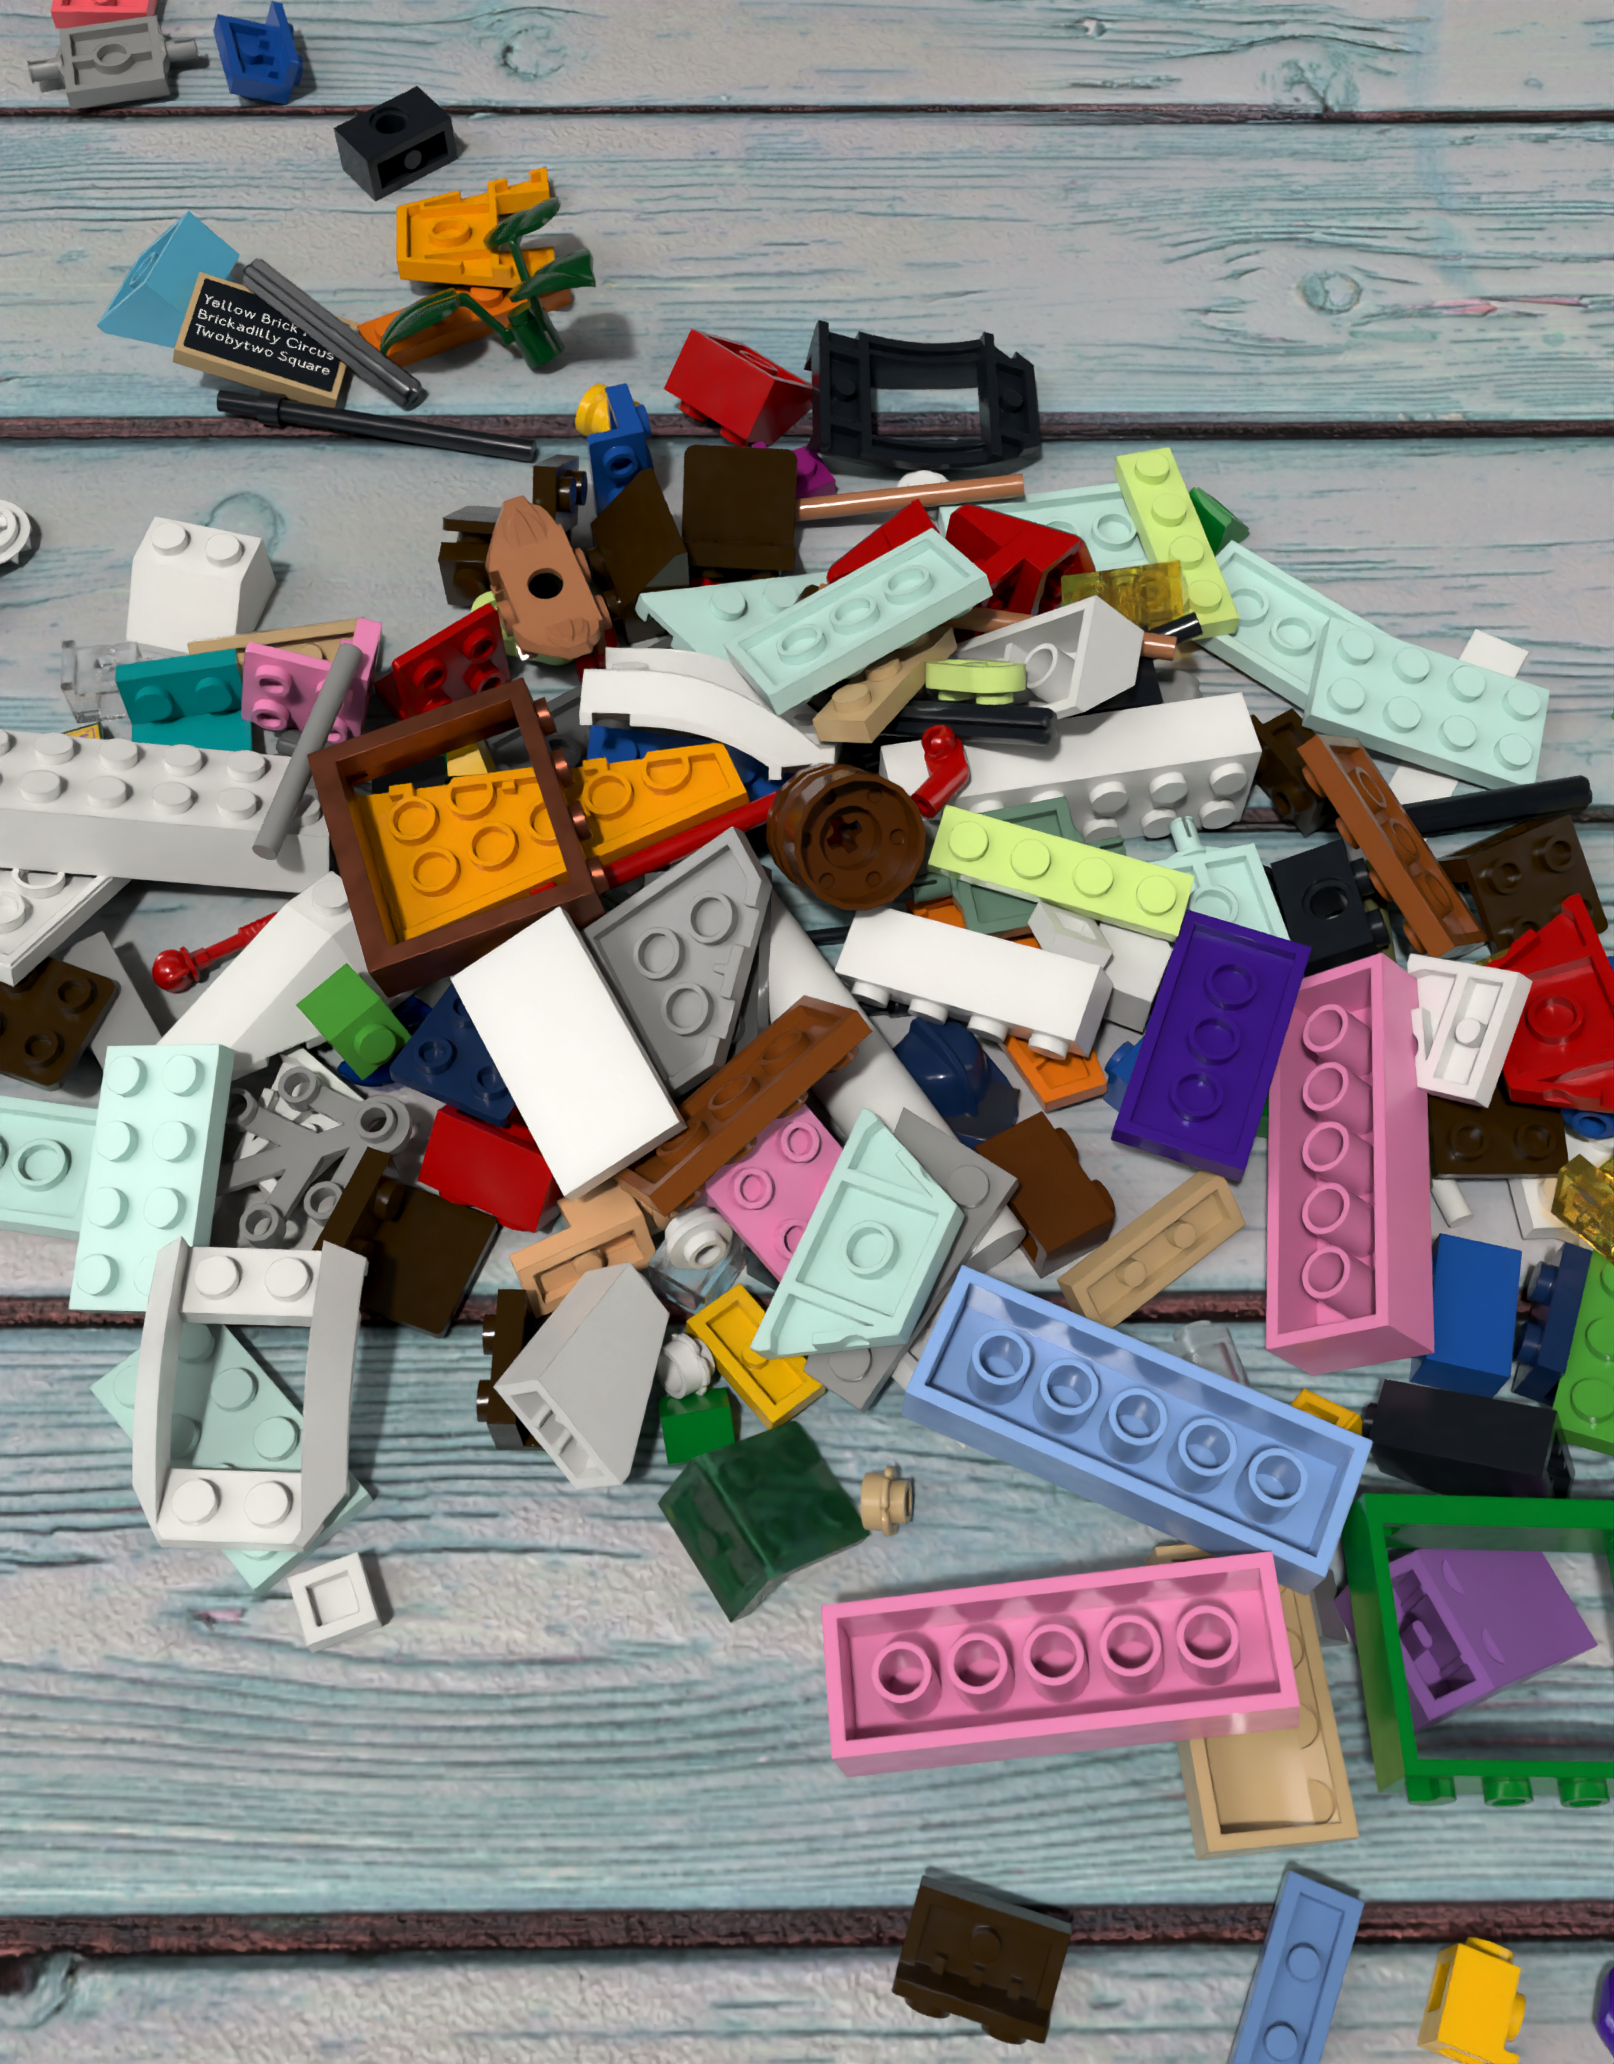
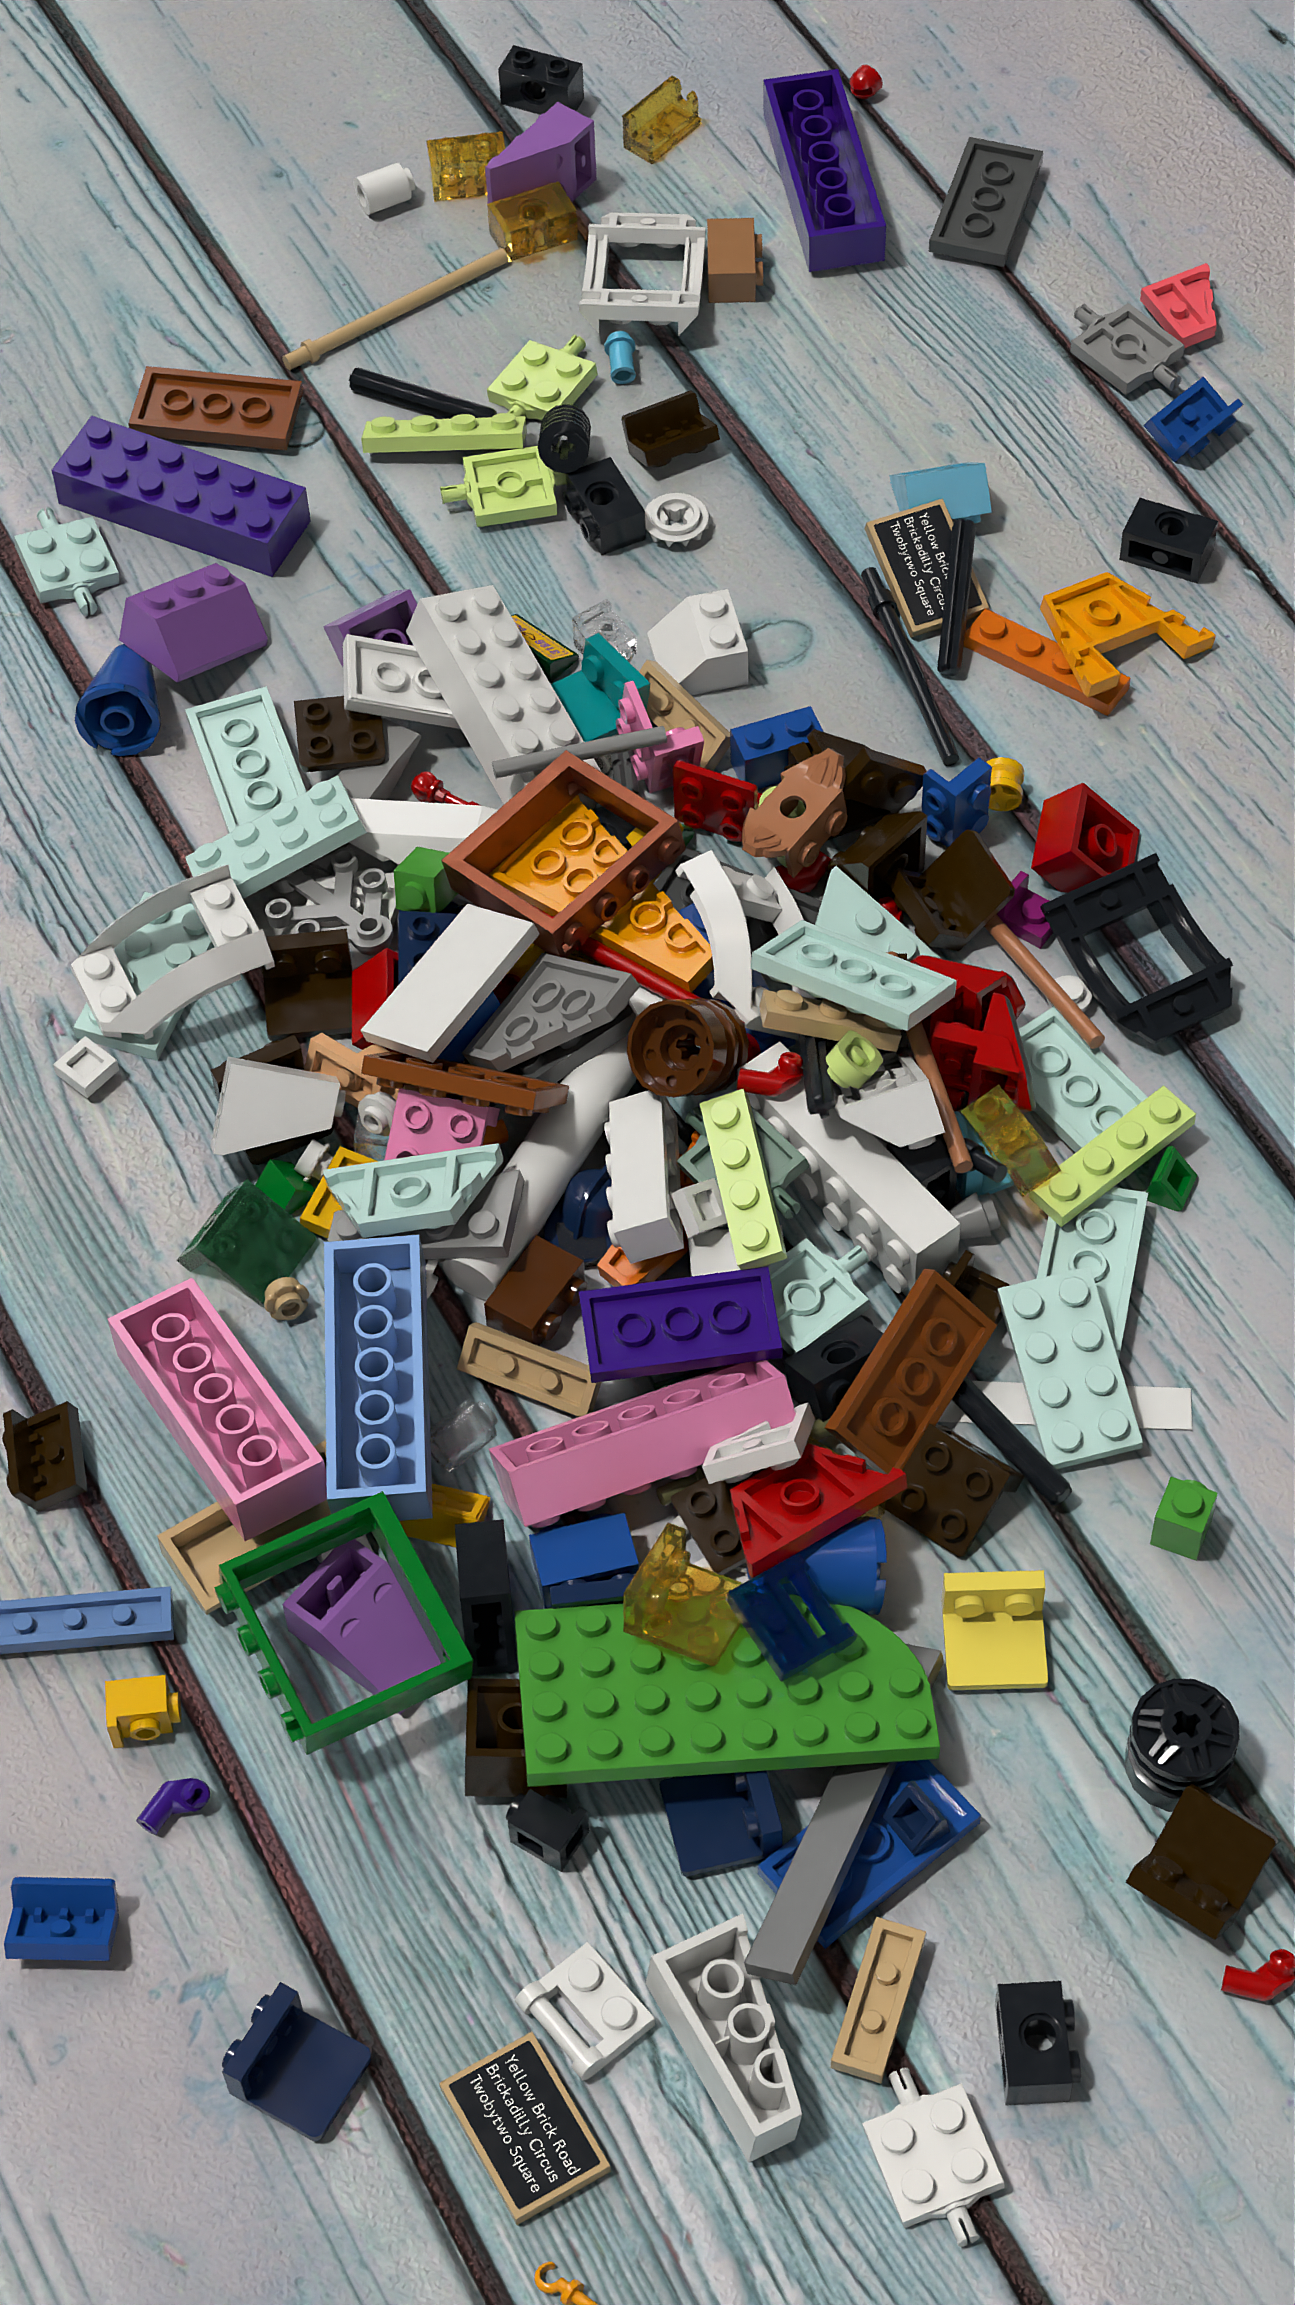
camera: 65 degrees right, 5 degrees down
(407, 584) = (762, 747): none -> blue brick
(529, 321) = (1046, 687): dark green plant -> none

